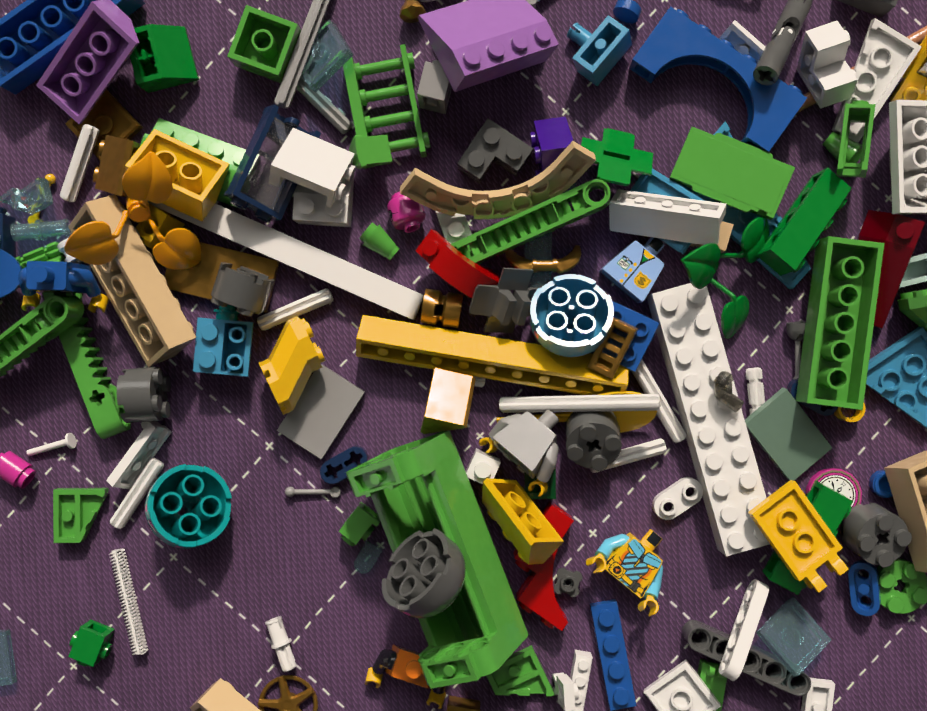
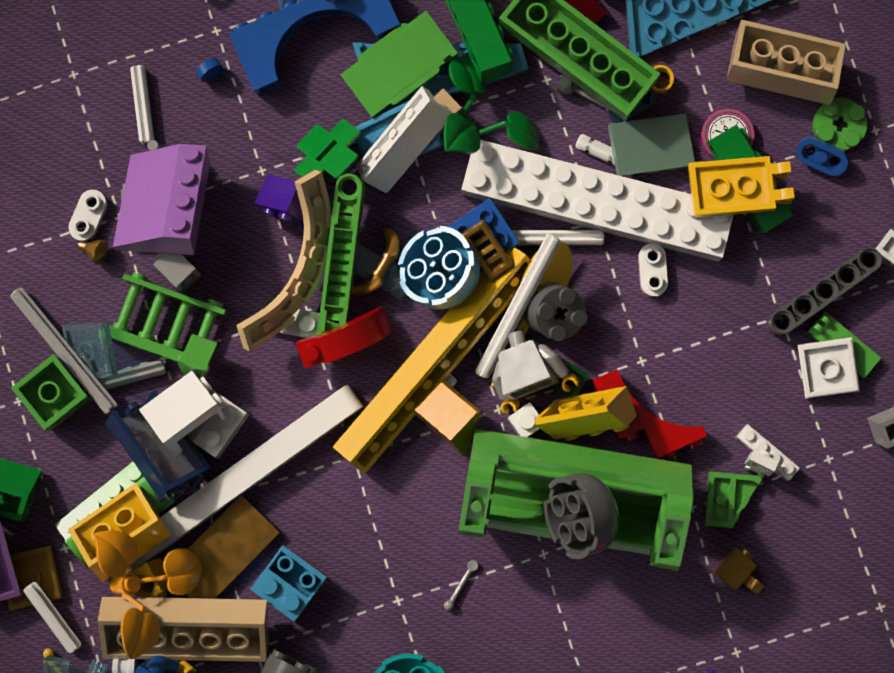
camera: 55 degrees left, 5 degrees down
(114, 155) = (77, 582): pearl gold slope -> none
(227, 313) = (258, 565): teal plate -> none
(241, 288) = (249, 535): dark grey brick -> none
(291, 363) = (338, 532): yellow brick -> none
(295, 309) = (292, 504): white axle -> none
(321, 411) = (394, 535): light grey tile -> none
(339, 459) = (446, 542): dark blue beam -> none
(359, 524) = (513, 560): bright green brick -> none
(367, 557) = (547, 572): clear light blue piece -> none
(379, 241) = (276, 396): bright green cone -> none
(403, 665) = (665, 585): torso -> none
(405, 213) = (266, 358): dark pink head -> none
(451, 308) = (374, 368): pearl gold wheel -> none
(491, 146) = (255, 248): dark grey brick -> none
(502, 306) = (396, 322): dark grey piece -> none
(564, 575) = (678, 407): dark grey plate -> none
(599, 50) = (228, 112): dark azure brick -> none
(612, 654) = (757, 406): blue plate -> none
(633, 564) = (686, 341): torso -> none
(635, 268) = (432, 190): light blue torso -> none
(638, 453) = (592, 285): white axle -> none
(724, 393) = (579, 178): clear smoke arm -> none
(744, 630) = (794, 278): white beam -> none
(793, 636) = (827, 240): clear light blue tile -> none
(875, 534) = (791, 119): dark grey brick -> none
(879, 484) = (742, 92): blue tile -> none

